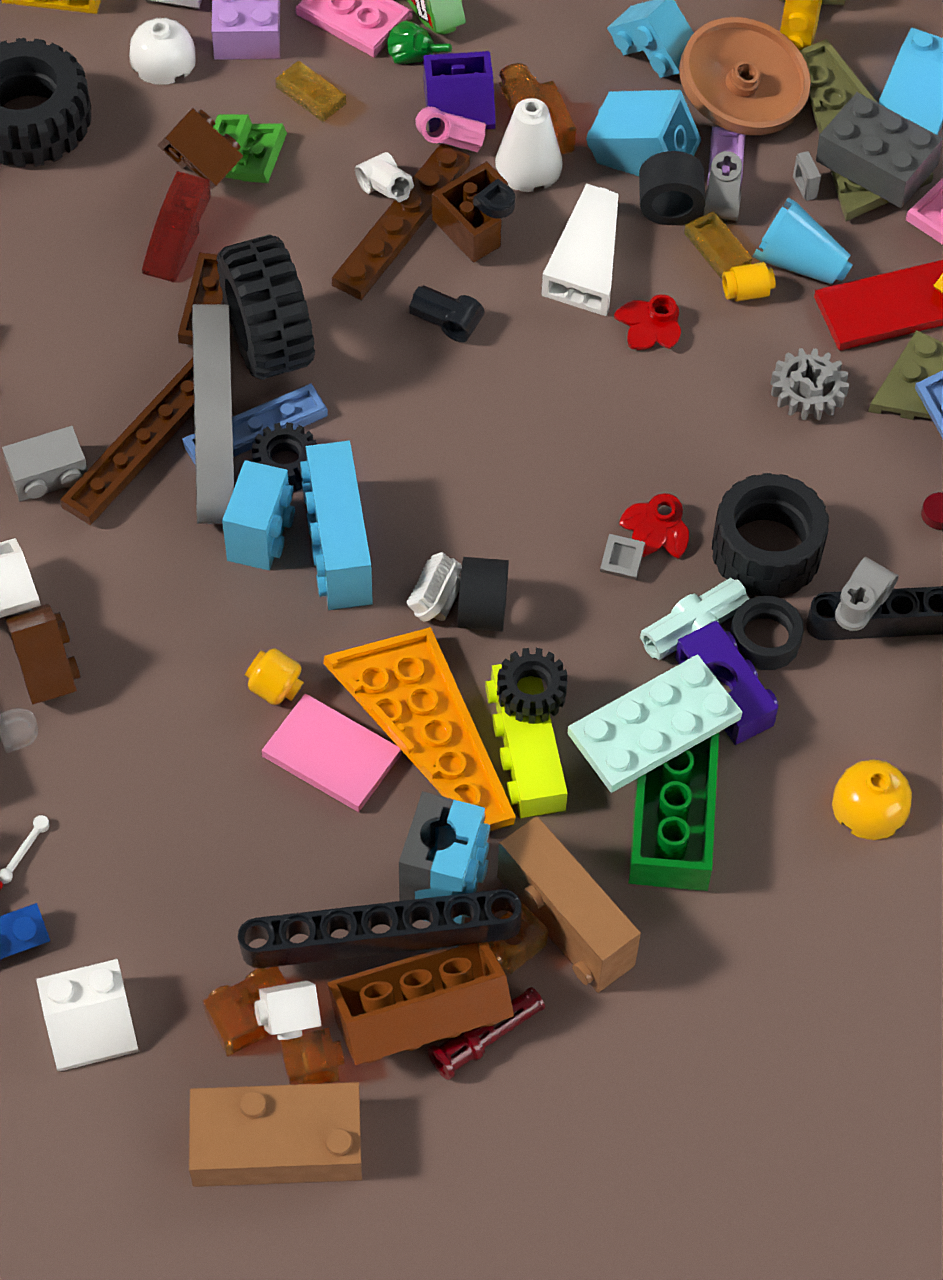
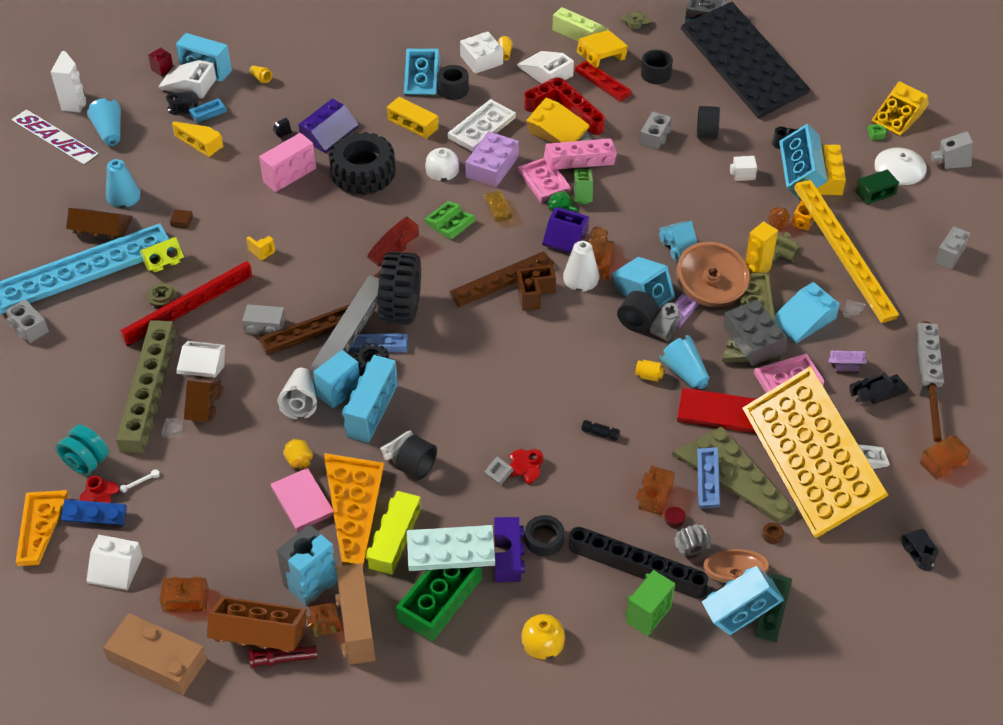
camera: 30 degrees right, 10 degrees down
(201, 147) = (423, 209): reddish brown brick -> none
(206, 571) = (298, 395): none -> white cone
(288, 1009) = (193, 598): white brick -> none
(312, 1058) = (193, 627): clear orange brick -> none
(364, 942) = (226, 572): black beam -> none
(384, 176) = (503, 255): white piece -> none
(453, 129) = (551, 247): bright pink piece -> none
(454, 316) = (493, 328): black piece -> none
(496, 200) = (543, 283): black tile -> none
(536, 666) = (406, 496): black tyre -> none
(584, 255) = (578, 325): white slope -> none
(648, 325) = (589, 370): red plate -> none
(692, 614) = (513, 508): light aqua piece -> none
(716, 243) = (646, 346): clear yellow plate -> none
(735, 416) = (600, 430): none -> black axle
(777, 500) = (574, 470): black tyre -> none
(806, 176) = (714, 332): light grey tile -> none
(809, 384) = (647, 429): light grey gear -> none
(864, 594) = (599, 532): light grey piece -> none
(894, 478) = (655, 490): none -> clear orange brick

